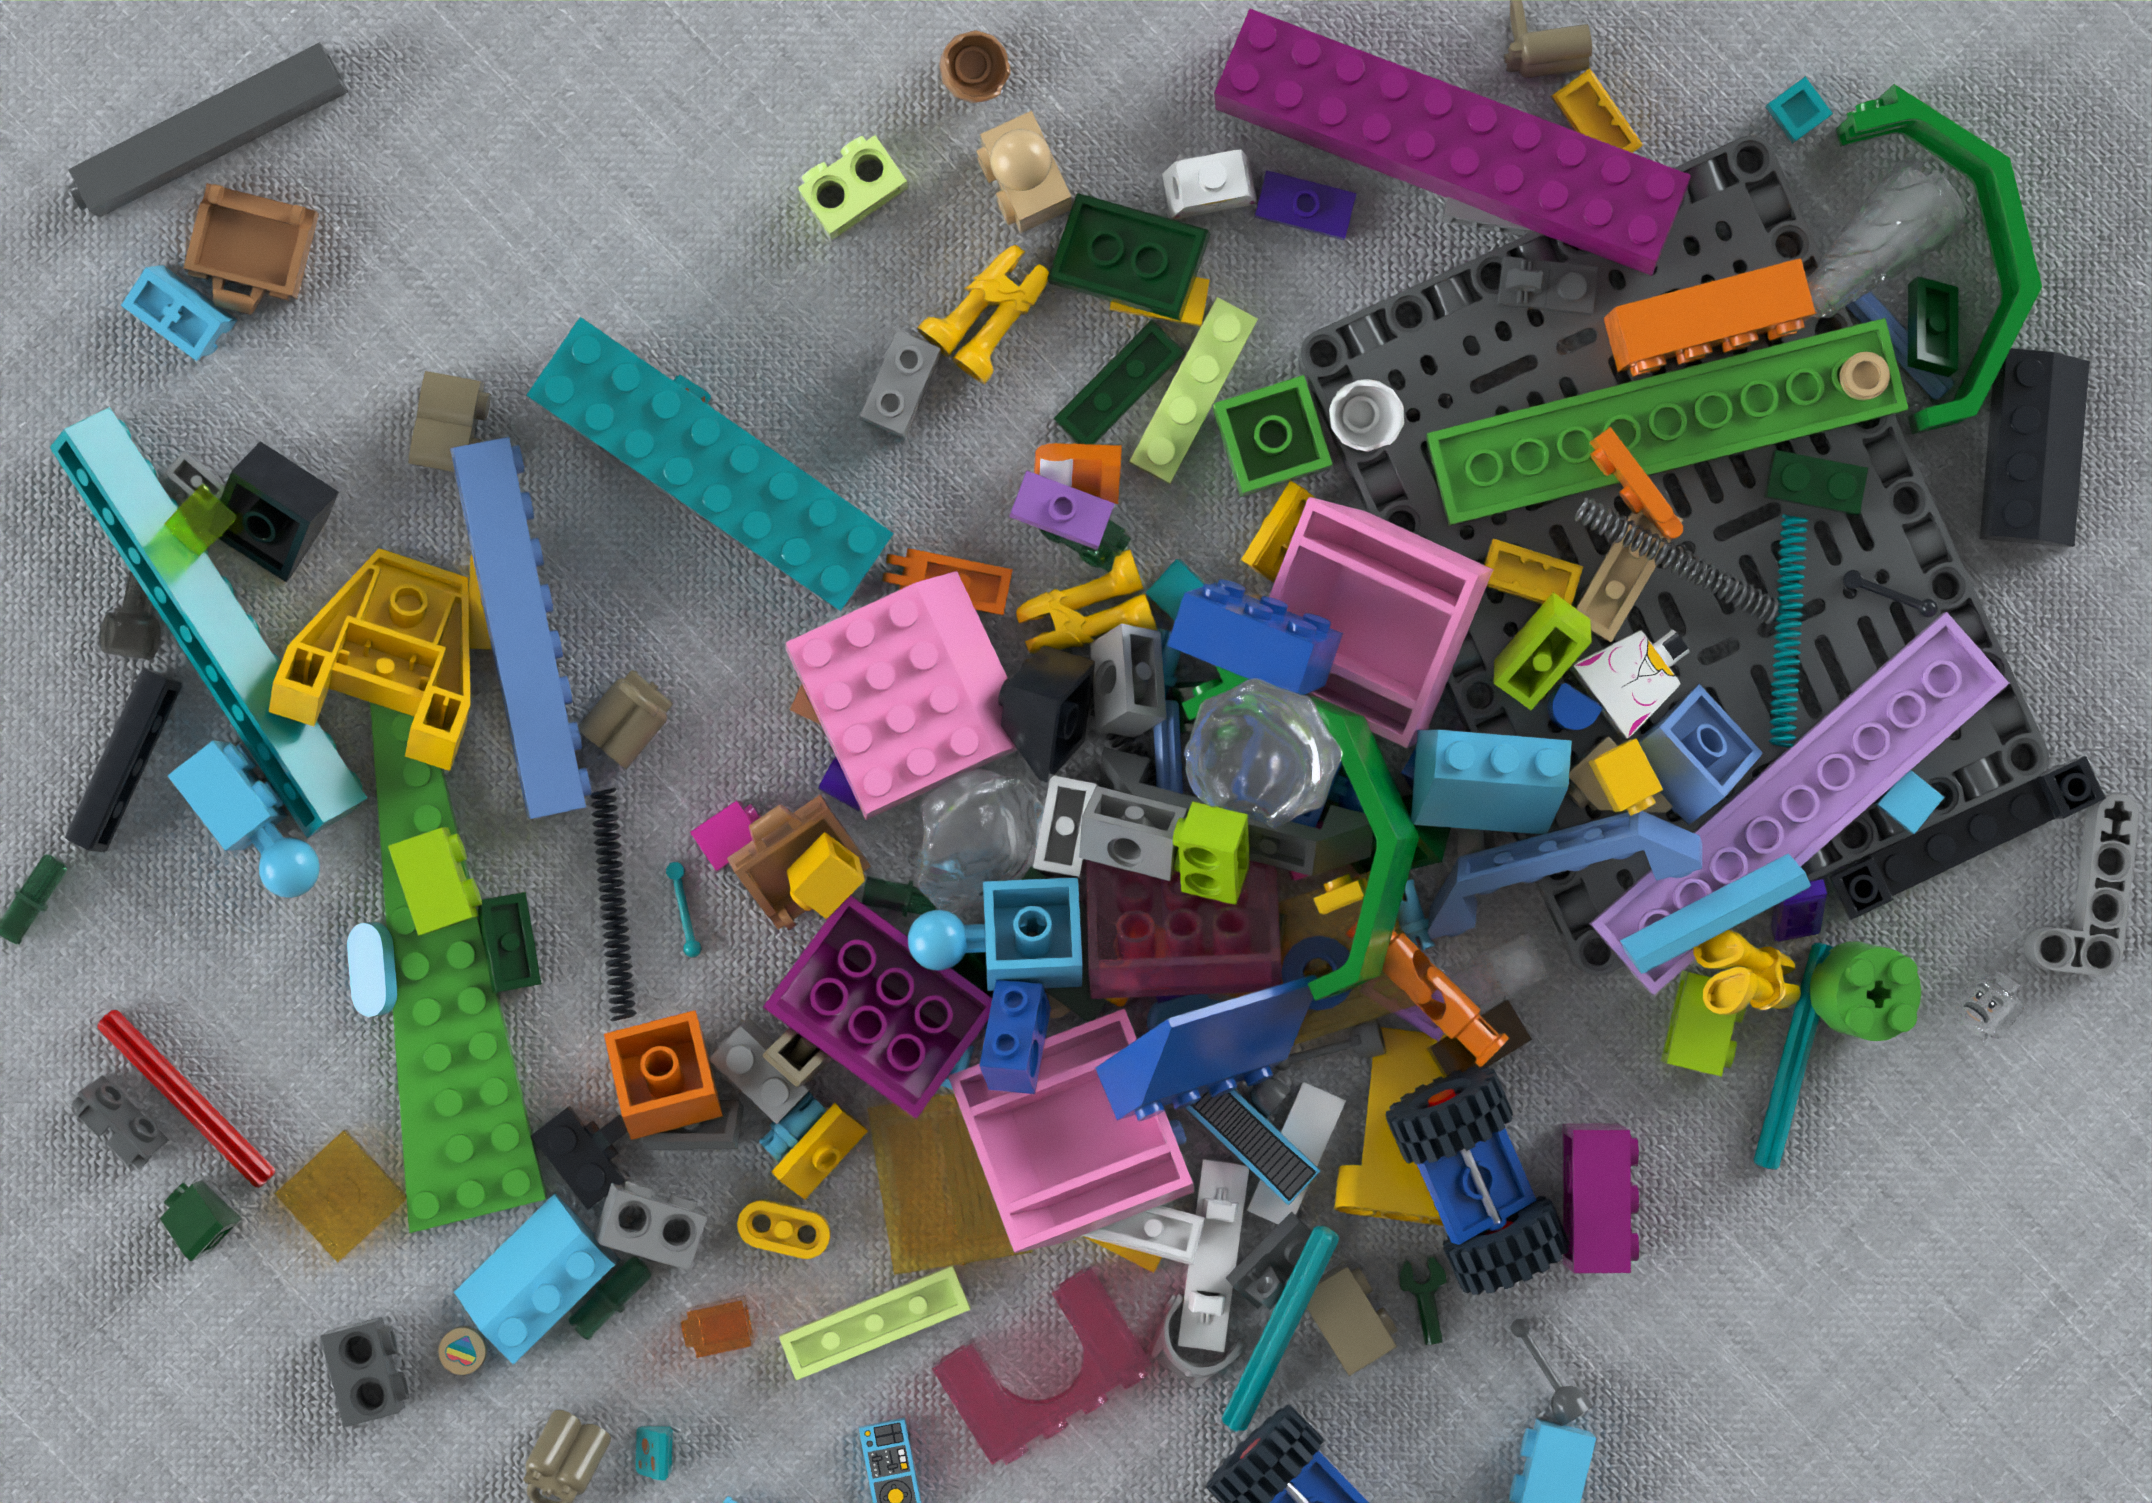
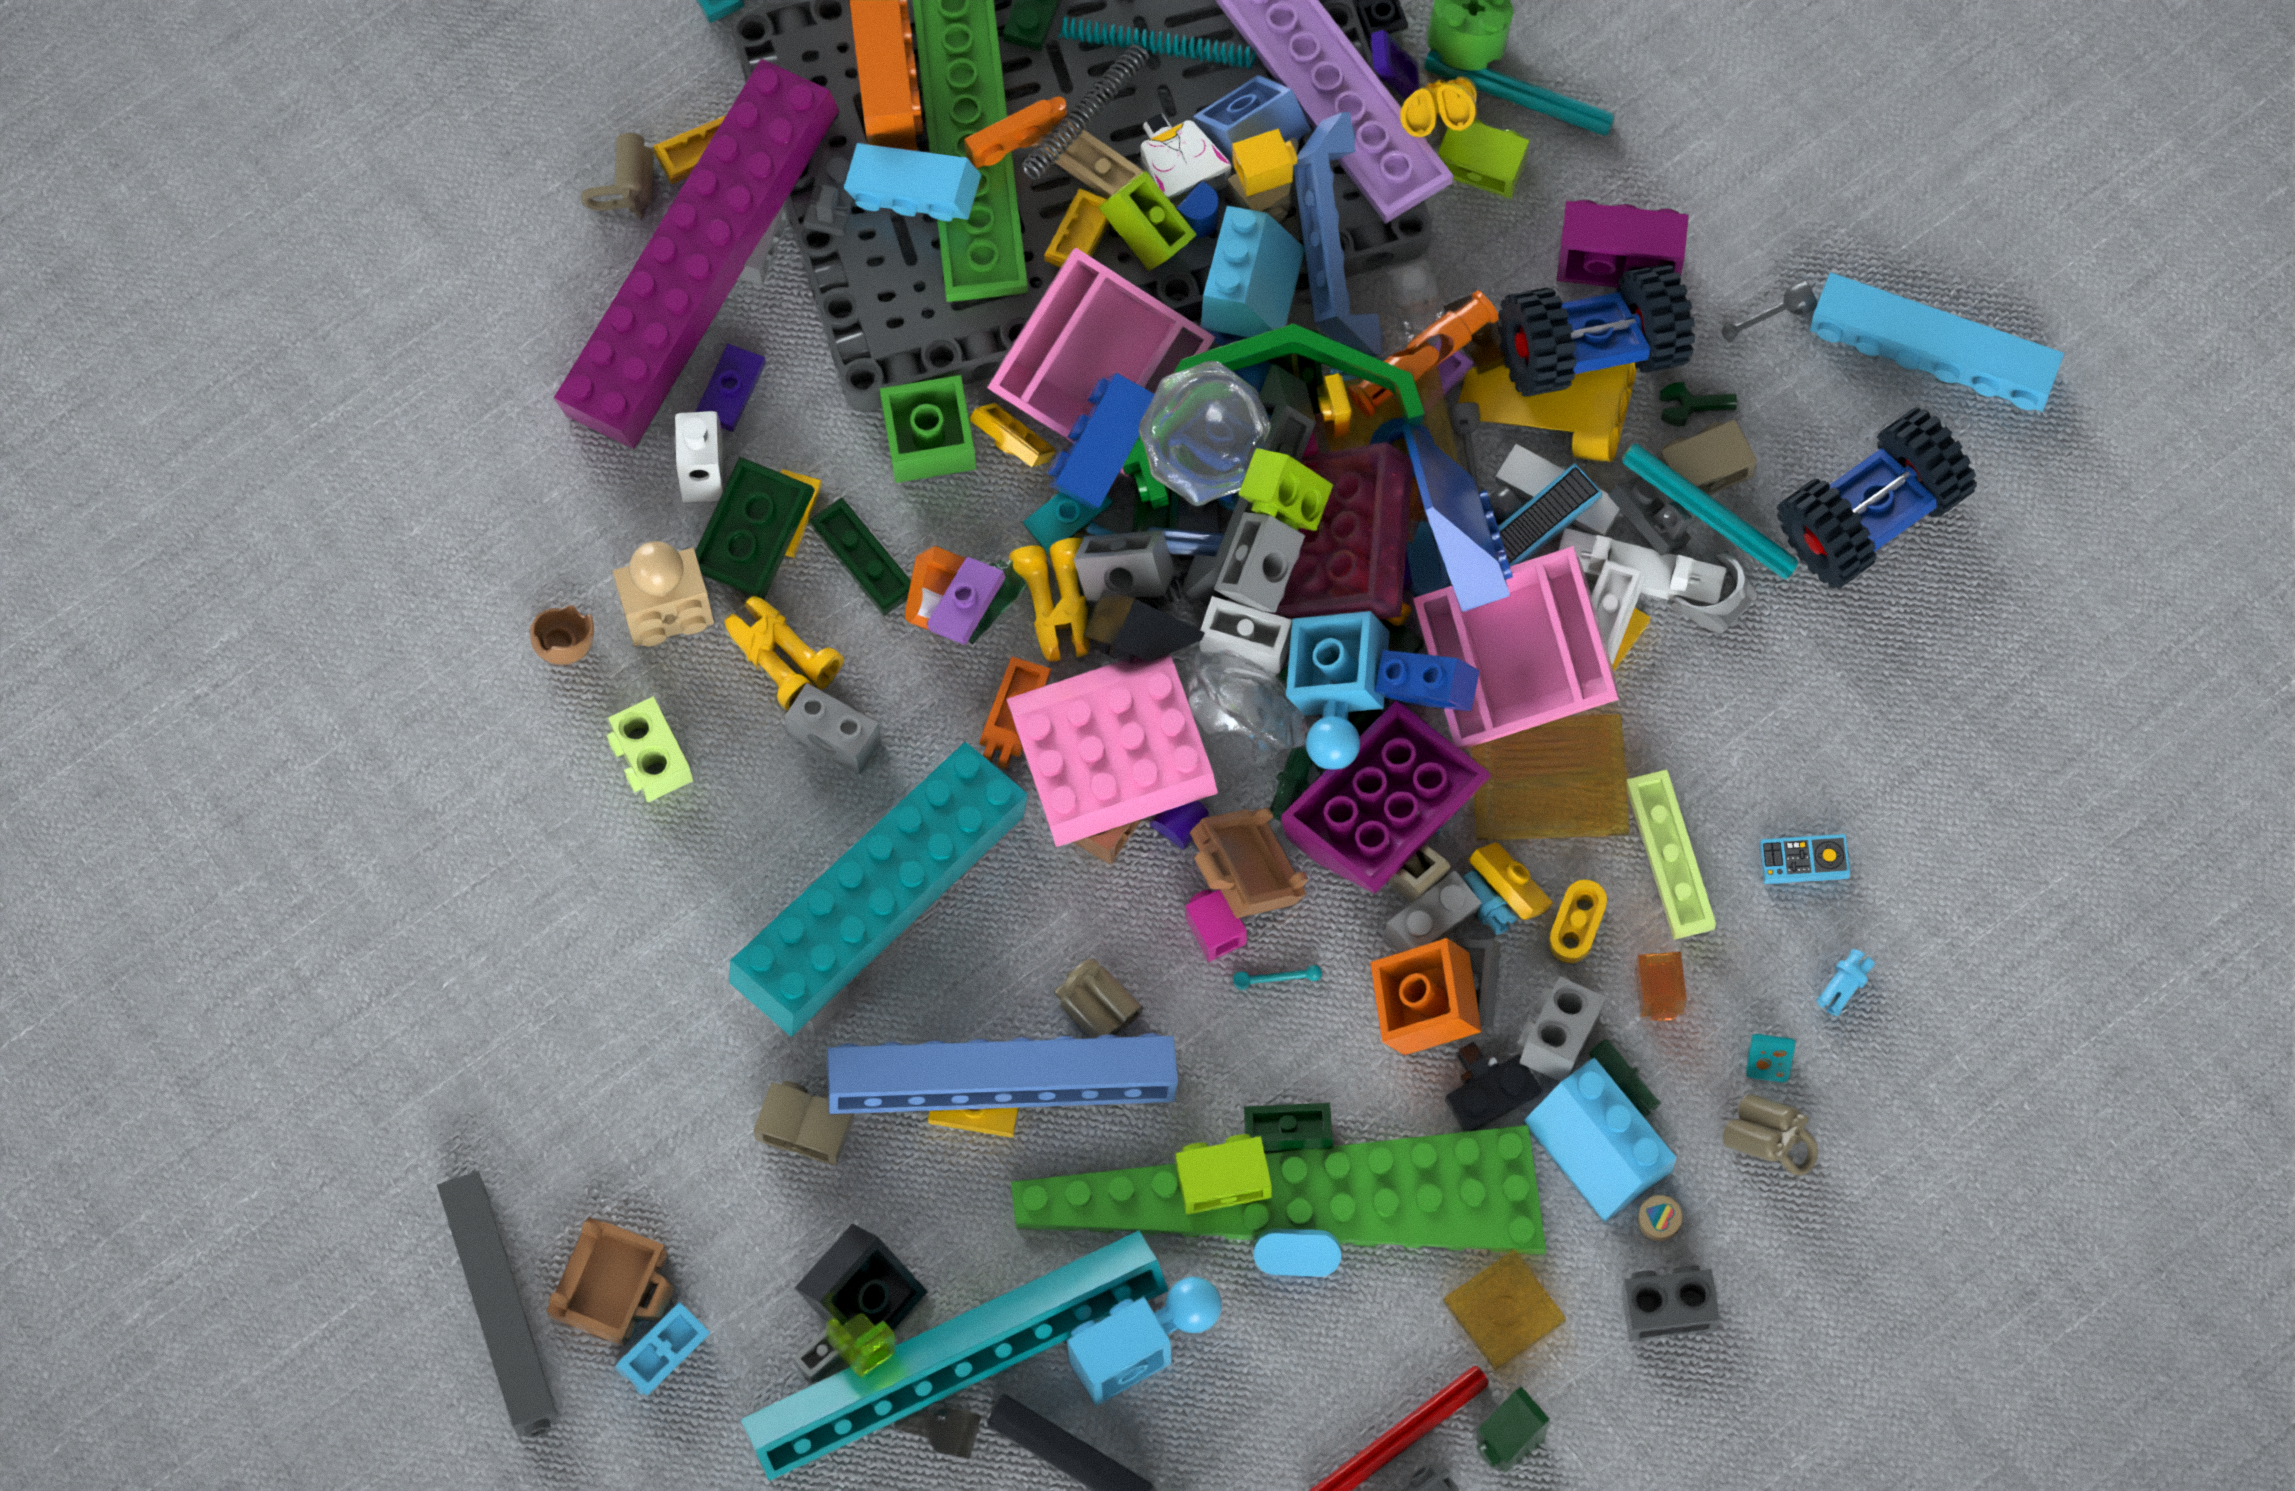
camera: 75 degrees left, 20 degrees down
(391, 640) = (1001, 1184): yellow wedge -> none
(613, 892) = (1268, 1035): black piece -> none
(824, 876) = (1264, 832): yellow brick -> none
(1007, 1421) = (1722, 661): clear pink arch -> none
(1193, 390) = (876, 495): yellowish green plate -> none
(1366, 415) = (922, 338): white hair -> none
(1556, 373) = (912, 182): none -> medium azure brick
(1715, 913) = (1389, 113): medium azure tile -> none

